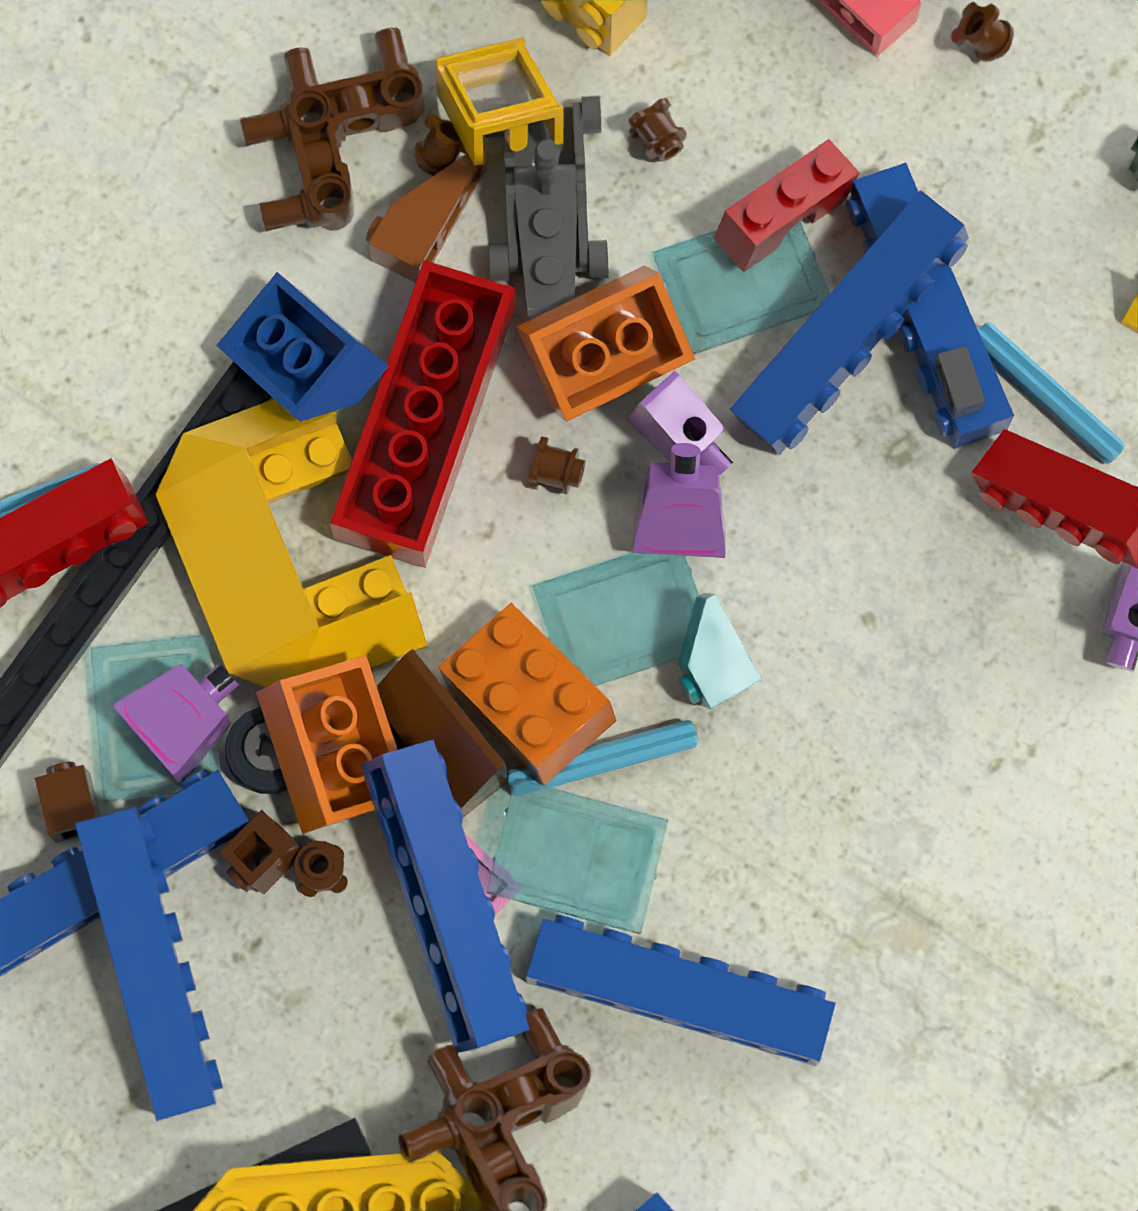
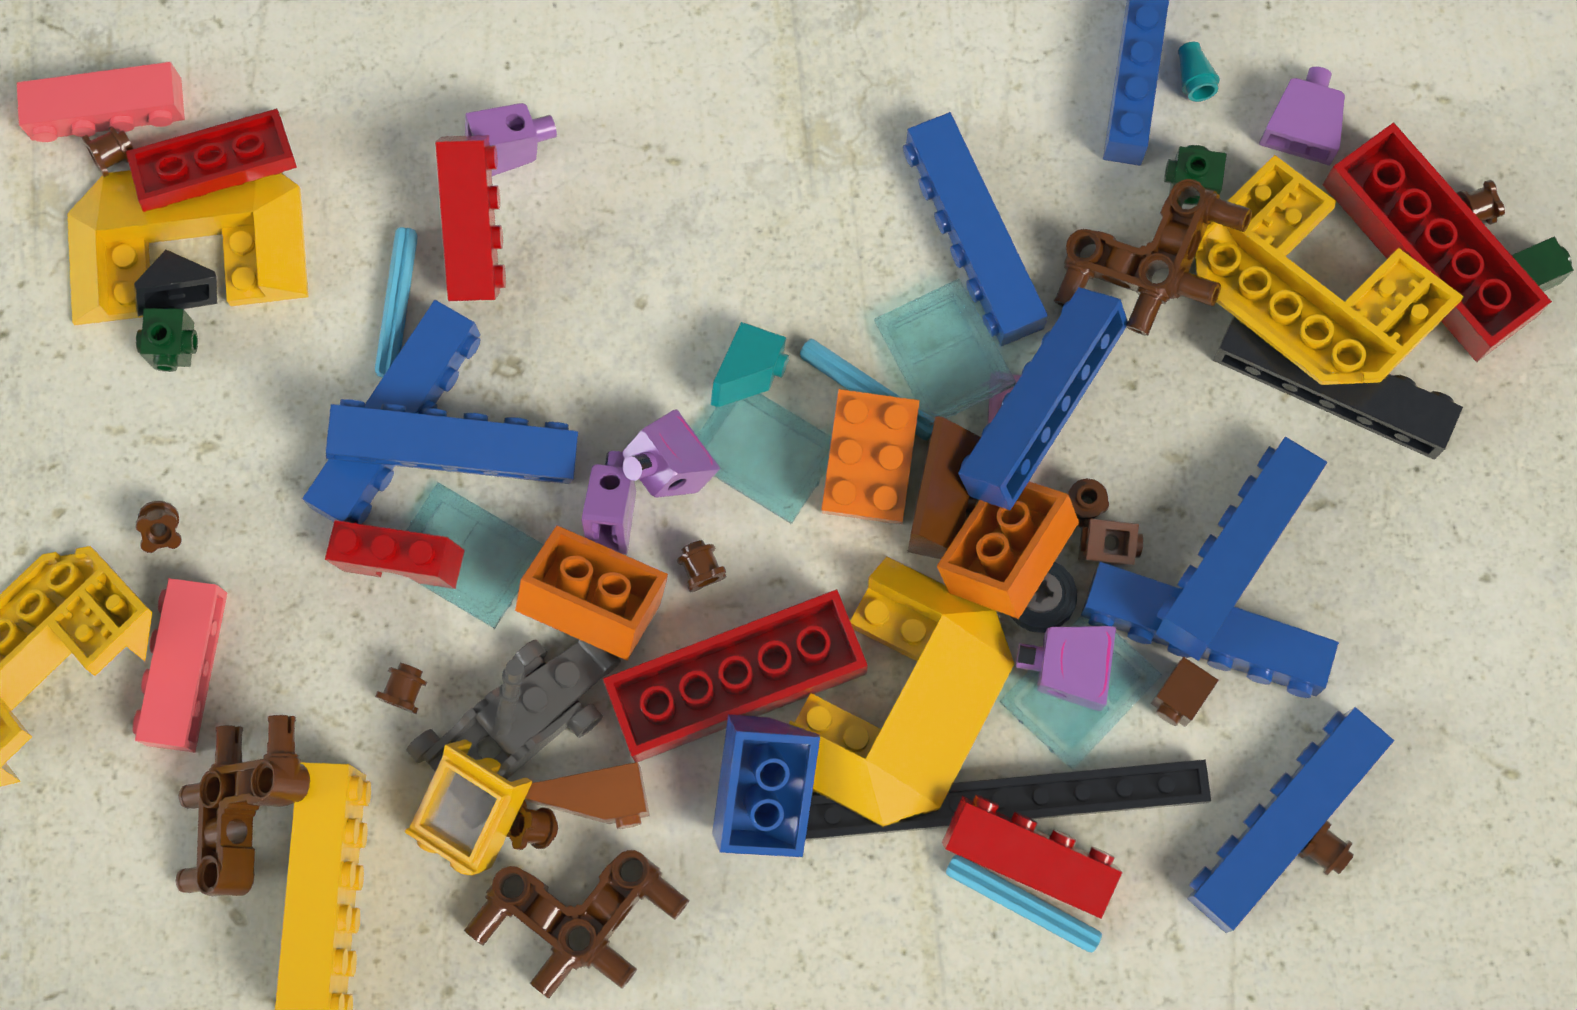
camera: 125 degrees left, 0 degrees up
(959, 382) = (440, 343): dark grey piece -> none

